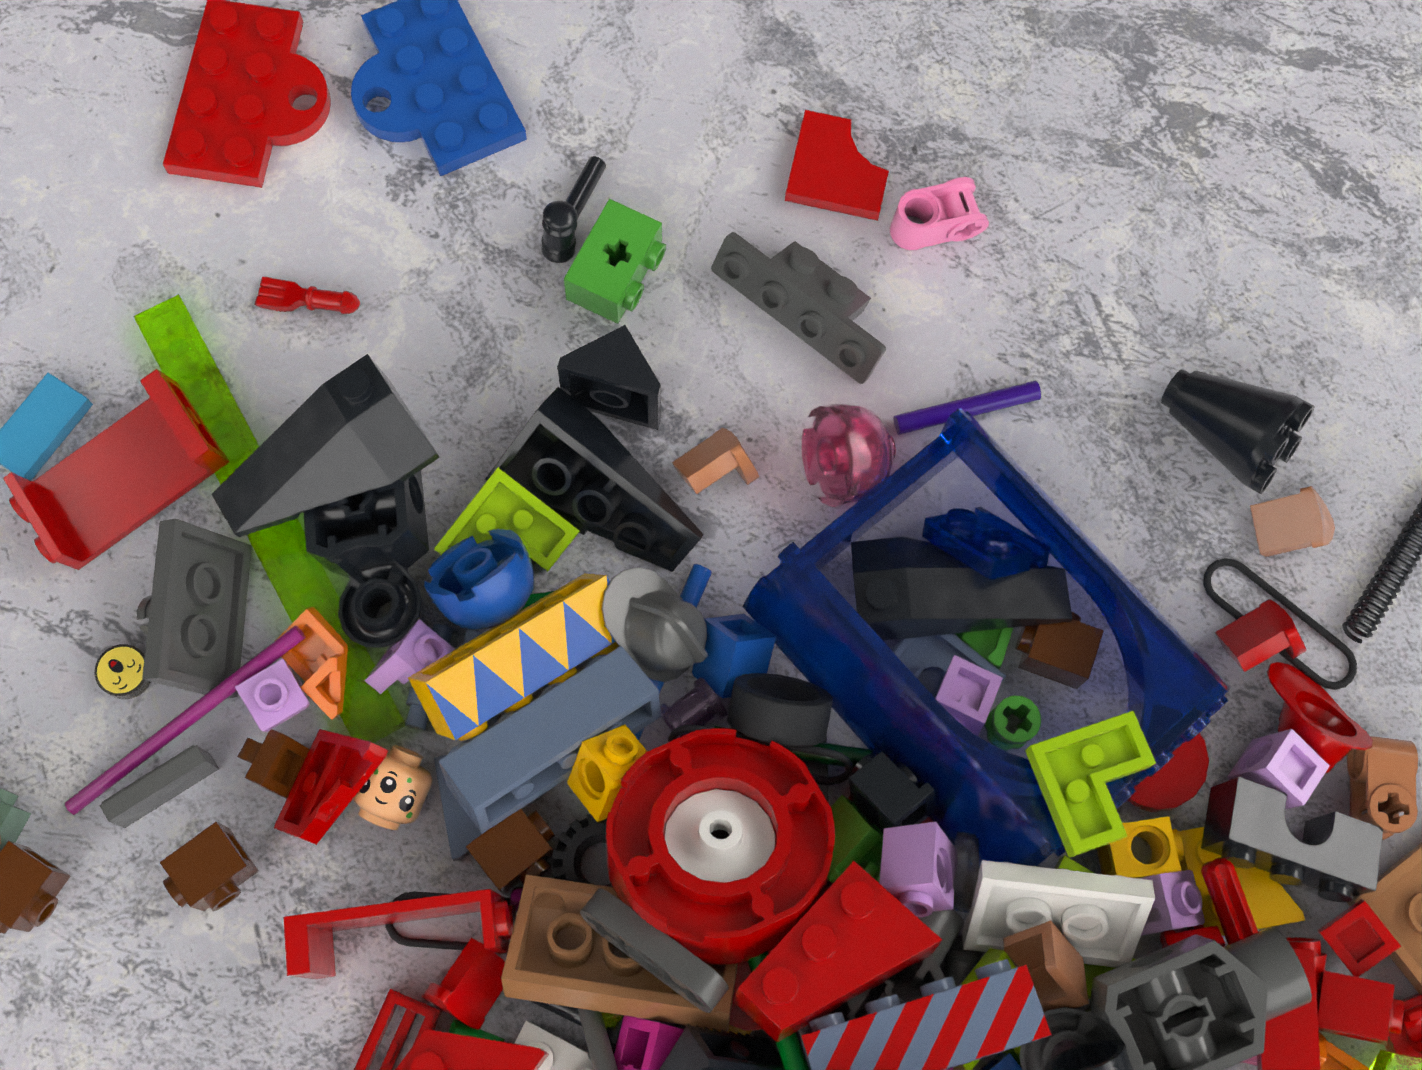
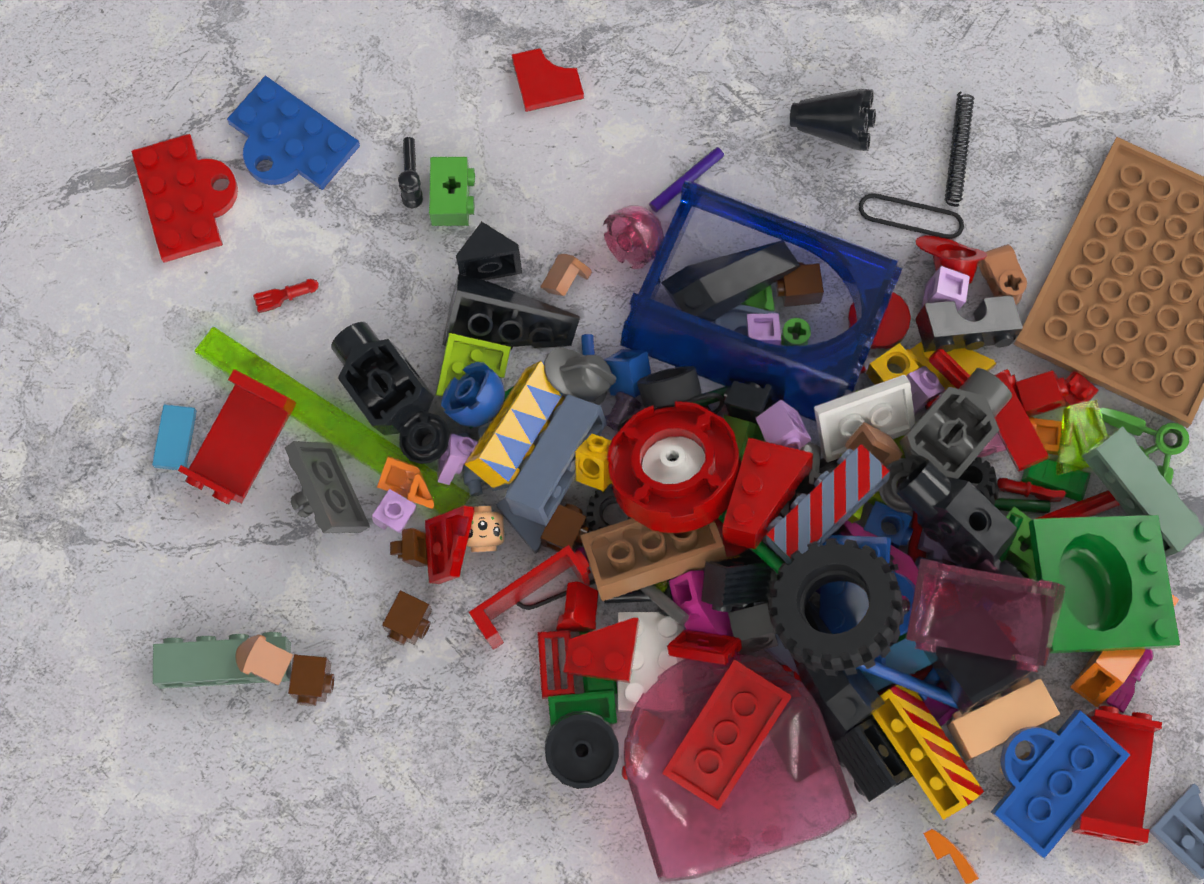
camera: 20 degrees left, 0 degrees up
(121, 672) = (300, 543): light yellow tile -> none
(158, 786) = (356, 590): dark grey tile -> none
(183, 721) = (350, 550): magenta axle -> none
(334, 446) = (359, 361): black wedge -> none
(654, 950) = (669, 533): dark grey beam -> none
(805, 299) = (567, 162): dark grey bracket -> none
(946, 211) = (621, 76): bright pink piece -> none
(965, 870) = (809, 419): clear smoke tile -> none
(985, 542) = (733, 246): clear blue plate -> none
(1074, 778) = (839, 337): lime plate -> none
(1261, 636) = (903, 226): red tile -> none
(1292, 523) = (892, 158): nougat tile -> none
(1359, 938) = (1026, 357): red tile -> none

